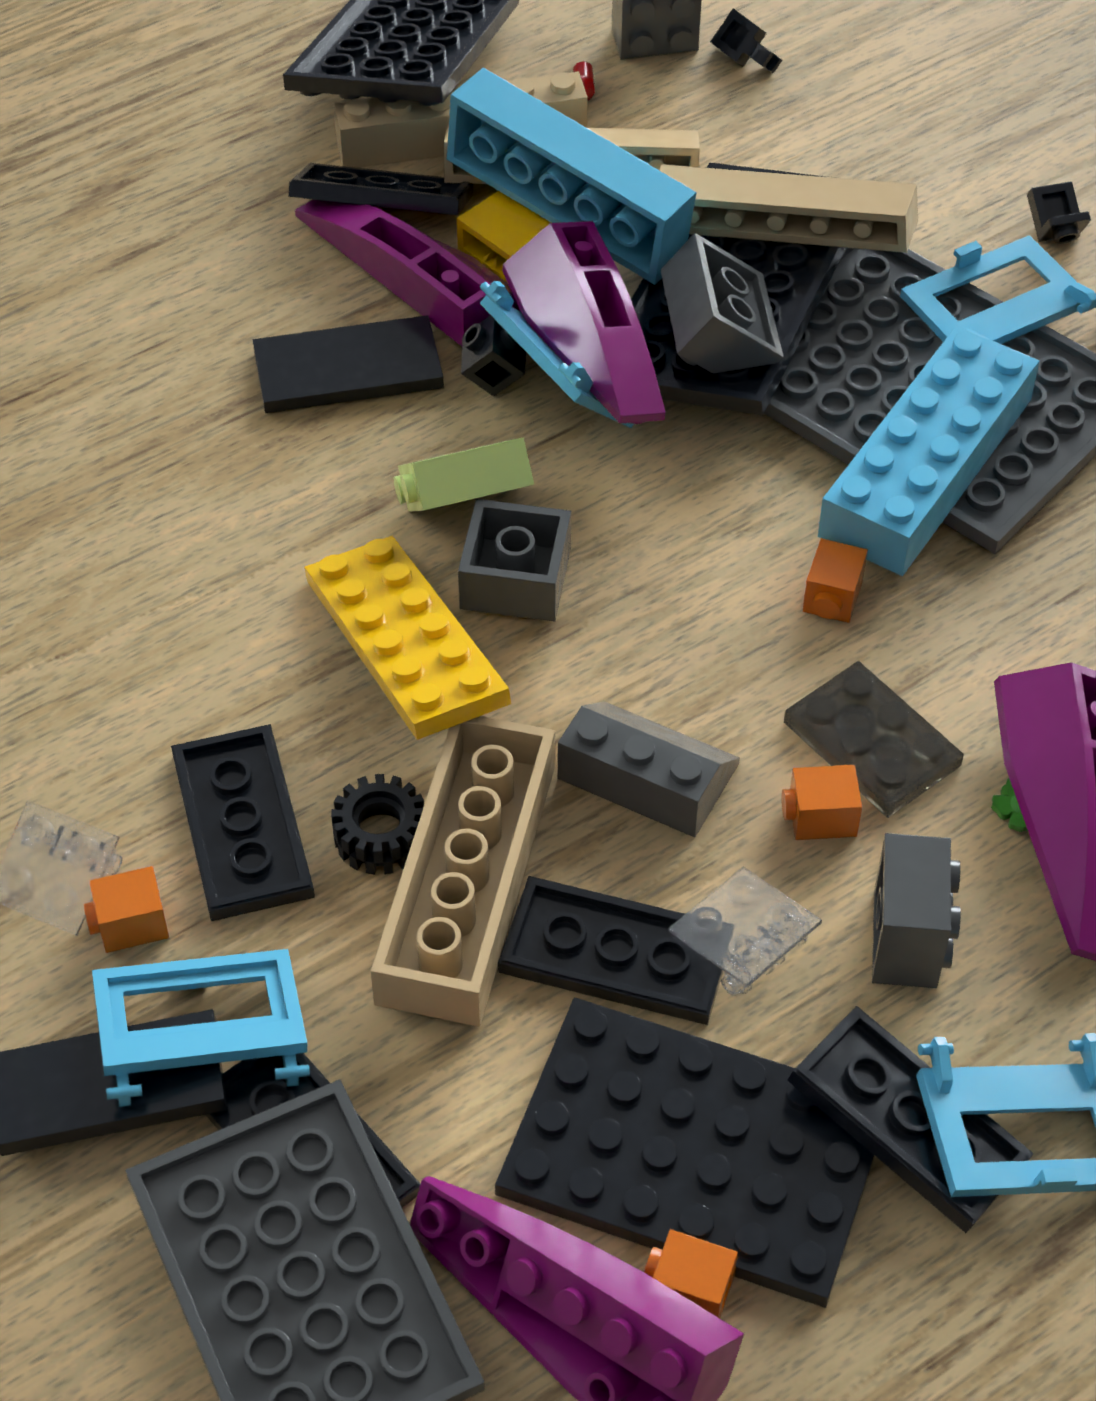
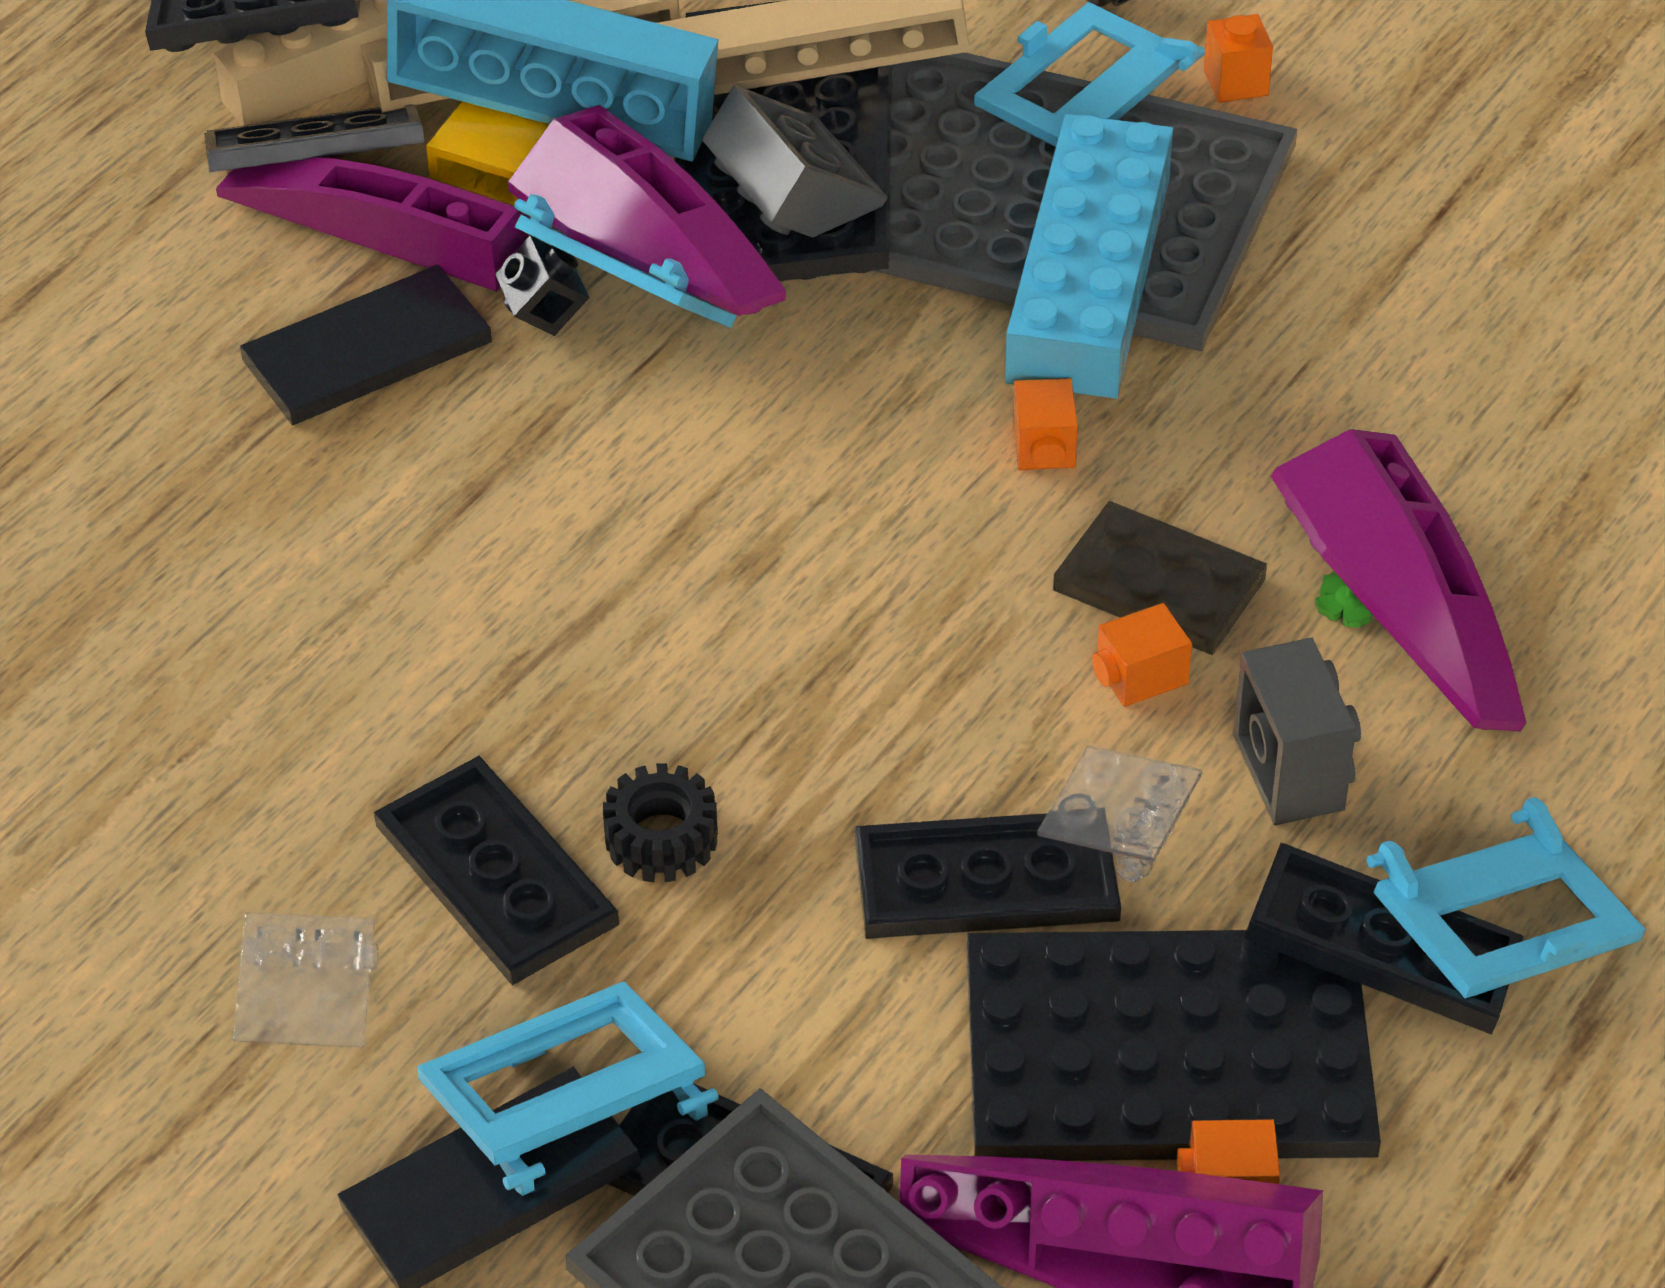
camera: 20 degrees left, 5 degrees down
(126, 910) = (417, 996): orange brick -> none
(407, 637) = (598, 612): yellow plate -> none
(463, 475) = (580, 422): yellowish green brick -> none
(464, 871) = (788, 836): tan brick -> none
(515, 560) = (681, 498): dark grey brick -> none
(643, 766) = (926, 679): dark grey slope -> none

